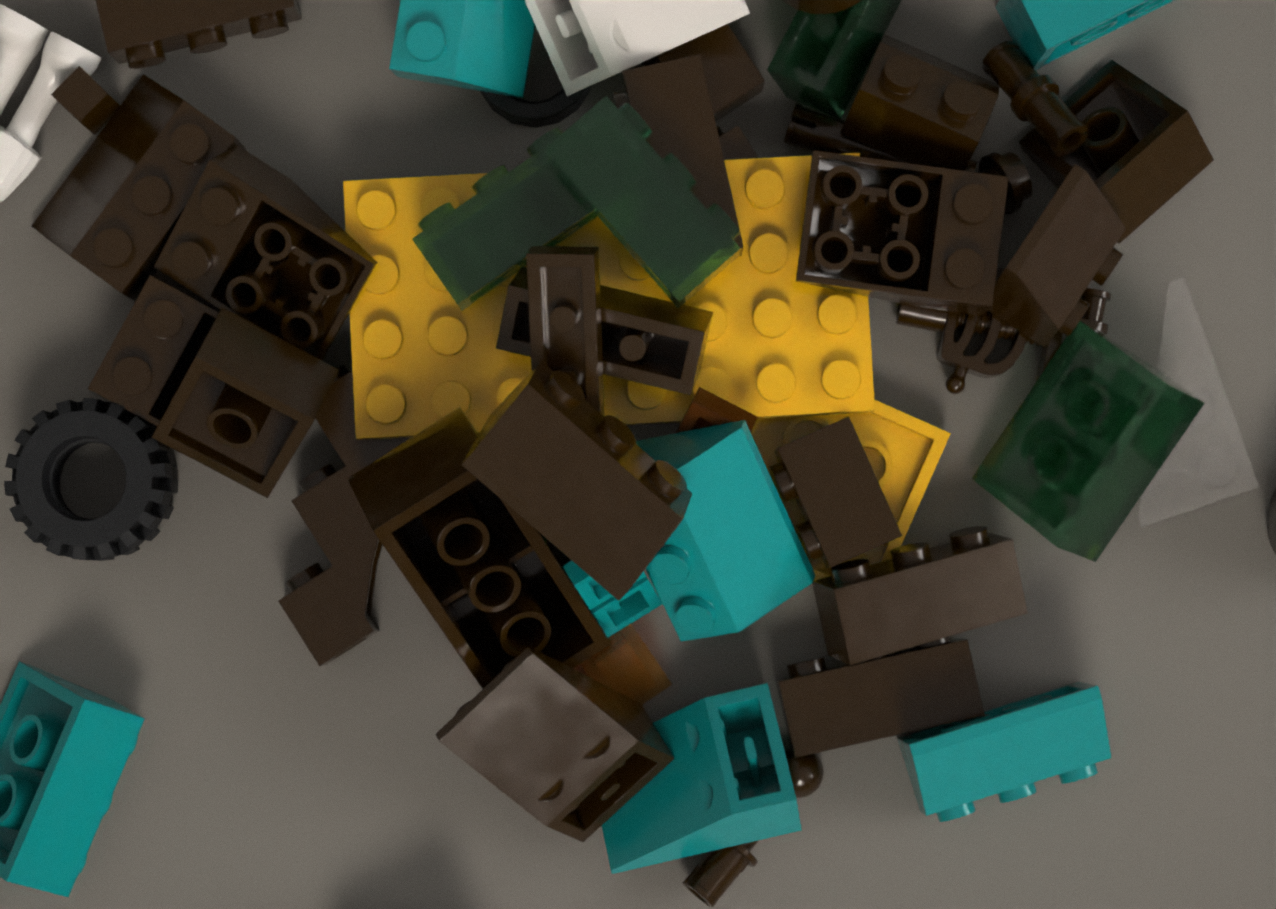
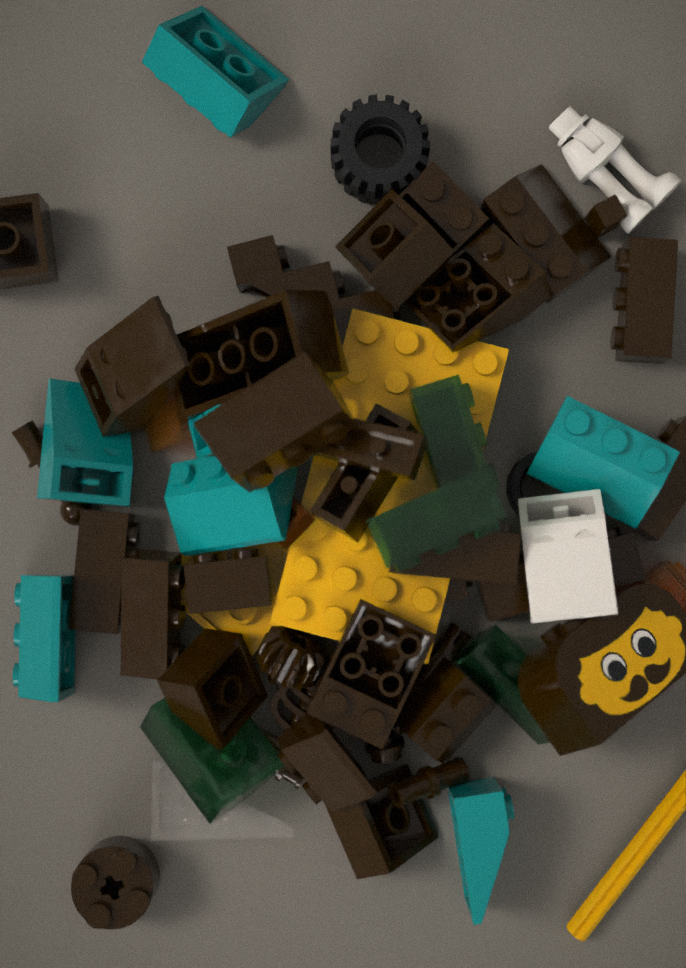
camera: 105 degrees right, 0 degrees up
(916, 363) = (291, 657): none -> dark brown gear
(996, 464) = (214, 686): none -> dark brown slope

